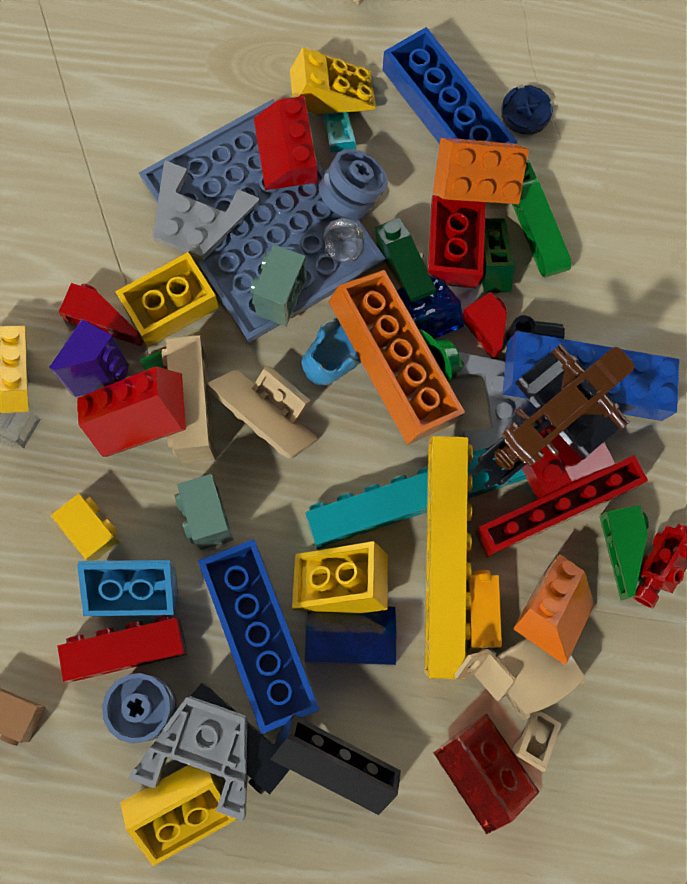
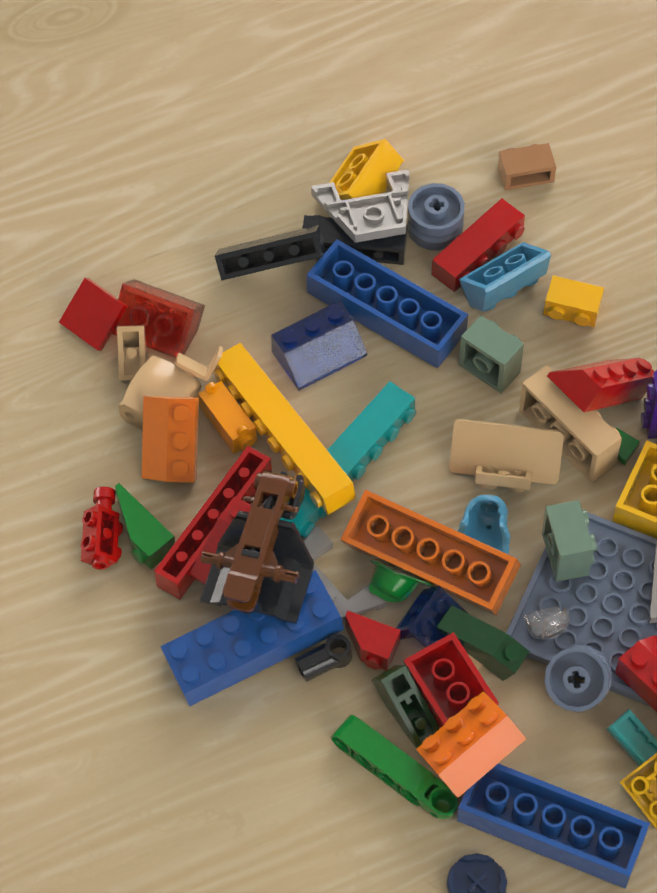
camera: 150 degrees right, 15 degrees down
(341, 579) = (351, 374): yellow slope -> none
(551, 817) = (93, 314): none -> red tile

